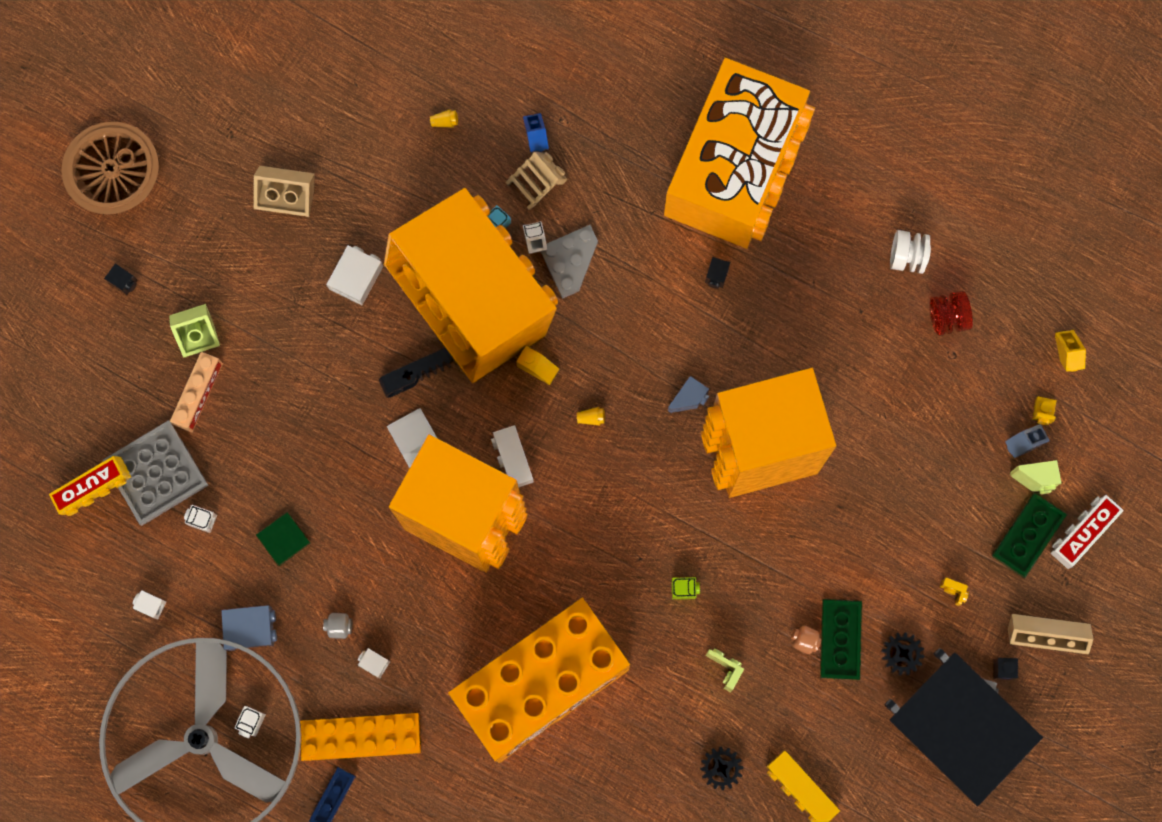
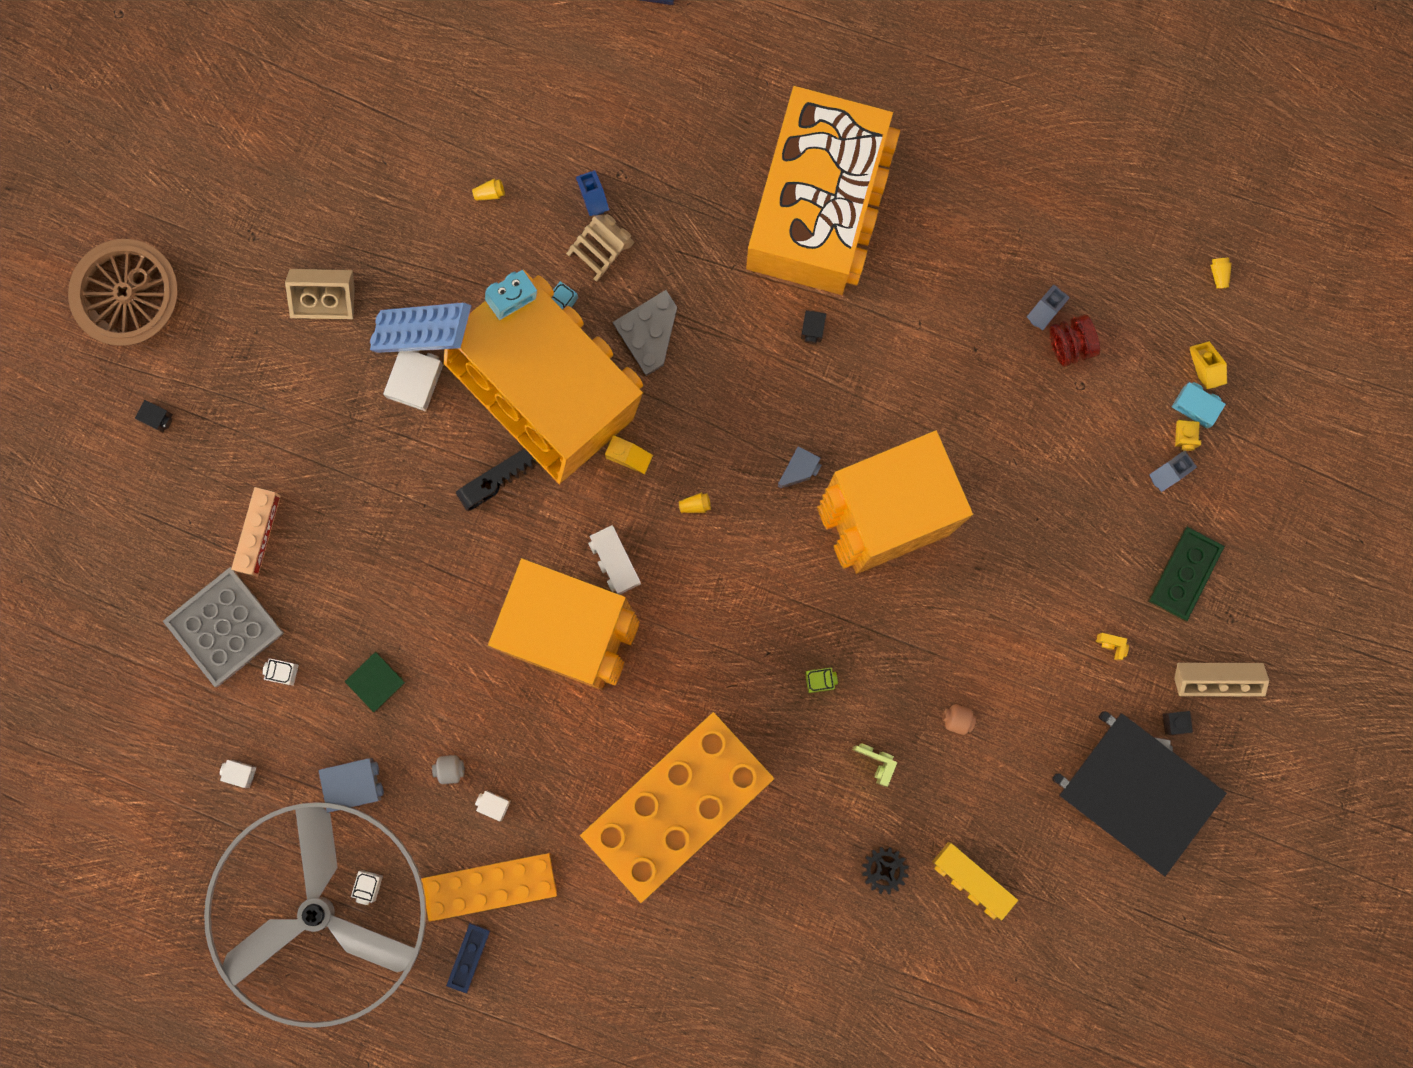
camera: 10 degrees left, 5 degrees up
(90, 485) = (153, 651): brick -> none
(194, 330) = (243, 463): yellowish green slope -> none
(367, 228) = (420, 328): none -> medium blue plate
(410, 434) = (502, 552): white slope -> none
(450, 207) = (510, 294): none -> medium azure brick
(535, 237) = (607, 312): white brick -> none
(841, 639) = (996, 713): dark green tile -> none
(897, 647) = (1071, 727): black gear -> none
(912, 252) = (1025, 277): white wheel -> none
(930, 281) = (1047, 307): none -> sand blue slope
(1038, 476) = (1193, 509): yellowish green slope -> none
(1057, 384) = (1199, 404): none -> medium azure brick
(1087, 531) = (1248, 562): brick -> none
(1091, 269) = (1221, 272): none -> yellow cone

